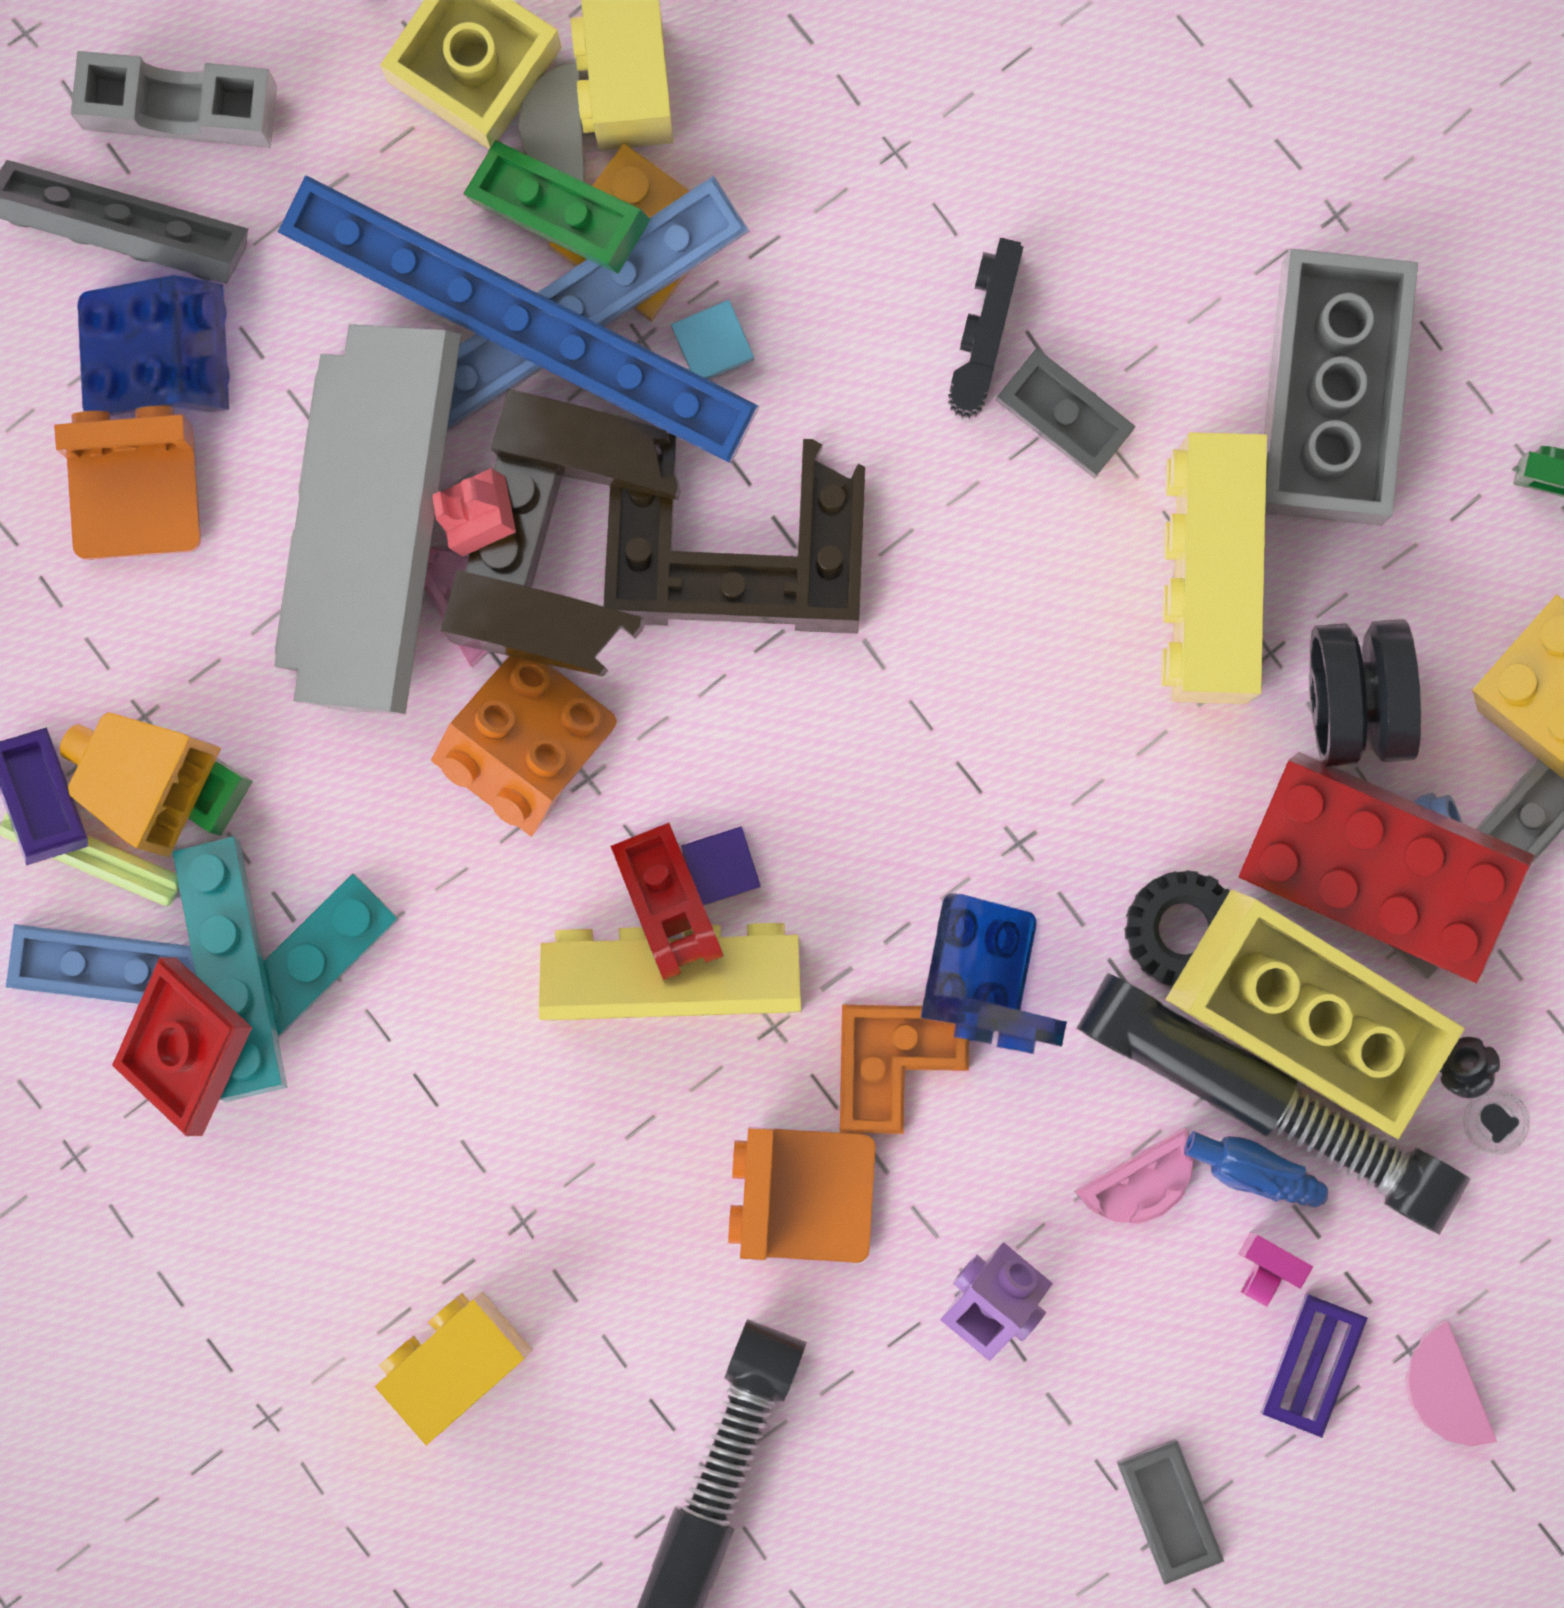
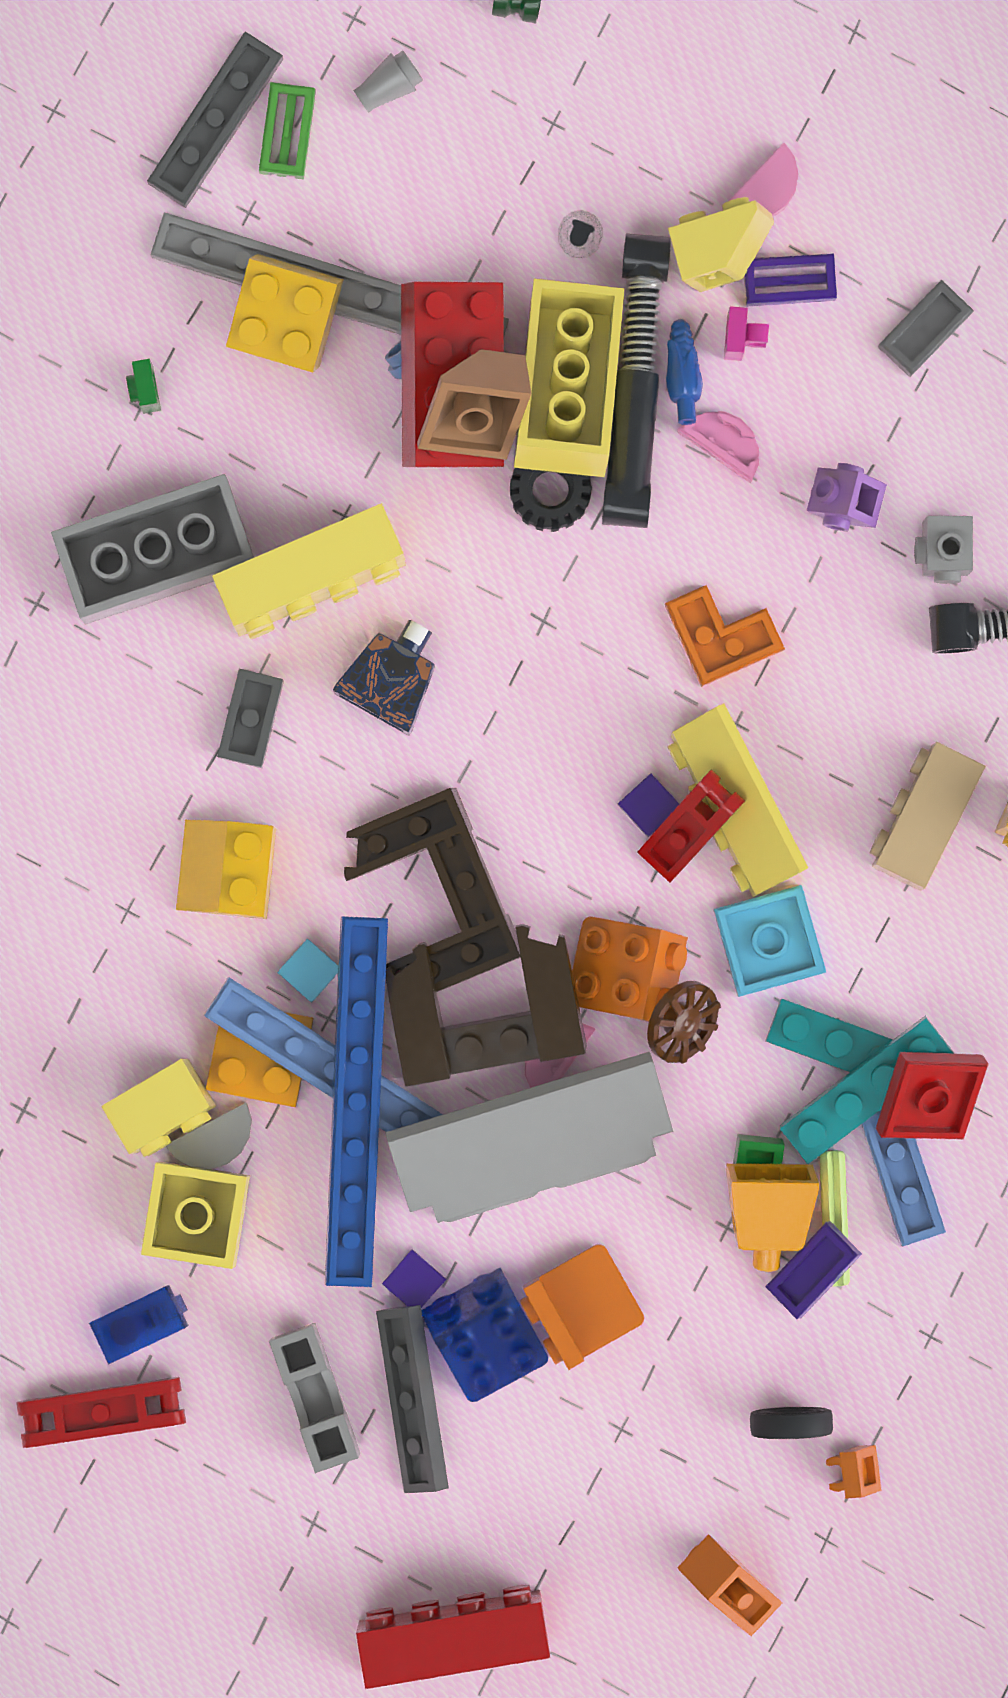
camera: 120 degrees left, 0 degrees up
(263, 293) = (414, 1280): none -> dark purple tile
(424, 777) = (683, 1022): none -> reddish brown wheel
(475, 512) = (496, 1068): coral tile -> none
(477, 938) = (769, 941): none -> medium azure tile
(542, 1211) = (926, 815): none -> tan brick
(557, 206) = (270, 1110): green plate -> none
(803, 1195) = (836, 653): orange bracket -> none
(872, 1399) = (945, 548): none -> light grey brick
(887, 296) = (226, 868): none -> yellow slope
(982, 975) = (644, 602): clear blue bracket -> none
(984, 332) = (222, 795): black hinge -> none
(1034, 612) = (390, 678): none -> torso
(1330, 872) = (478, 406): none -> medium nougat slope
(1365, 692) = (346, 440): black wheel -> none
(1398, 1290) = (720, 245): none -> light yellow slope
(1477, 1080) = (561, 258): black plate -> none

